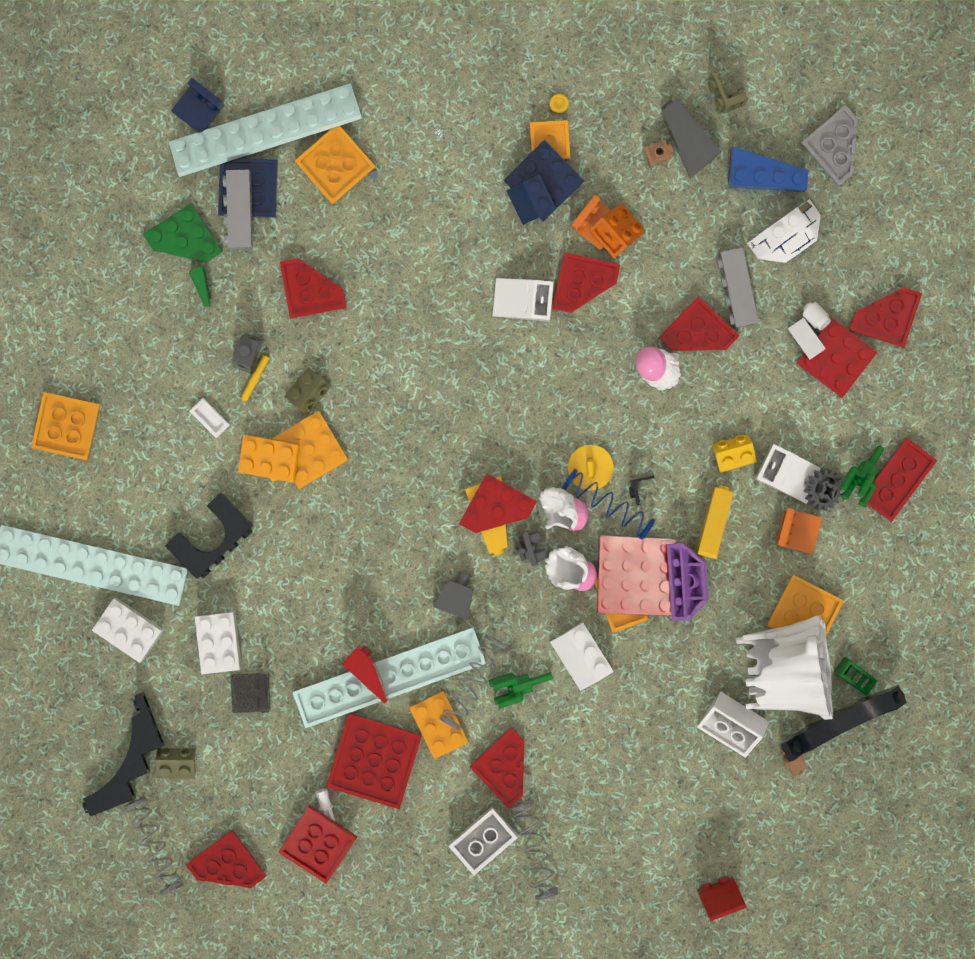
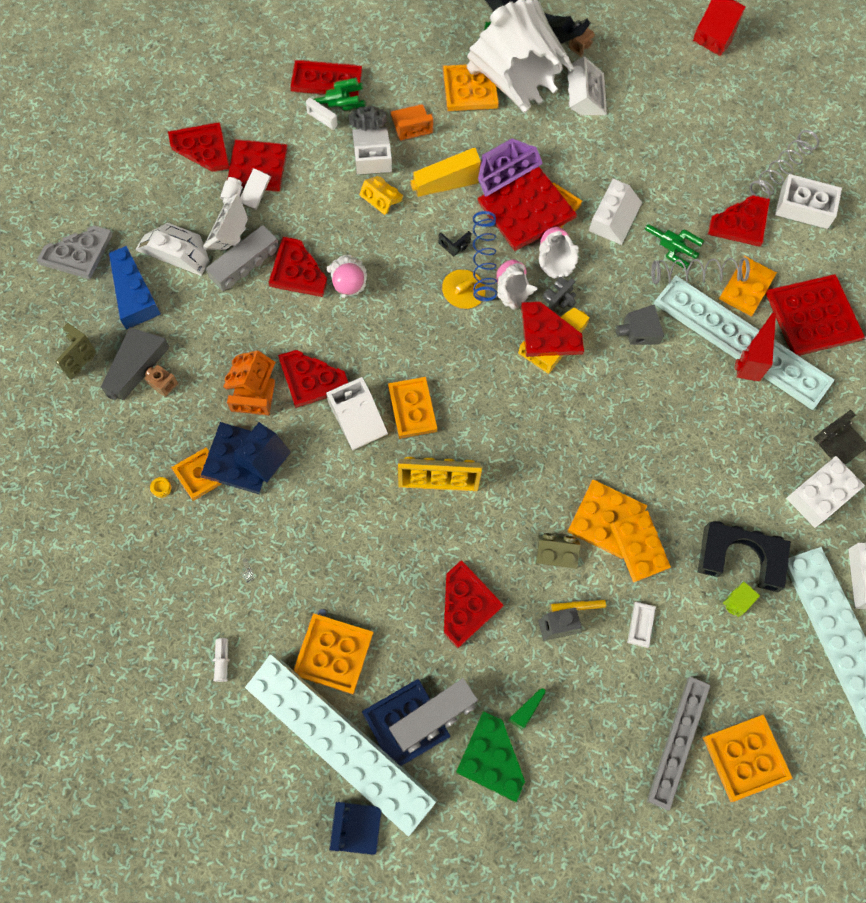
camera: 125 degrees left, 20 degrees down
(108, 383) = (678, 744): none -> light grey plate
(178, 507) = (740, 599): none -> lime brick
(383, 76) = (221, 660): none -> white axle
(428, 334) = (439, 474): none -> yellow slope
(502, 350) = (412, 407): none -> light orange plate
(775, 288) = (228, 226): none -> white wedge
(857, 449) = (321, 113): none -> white tile

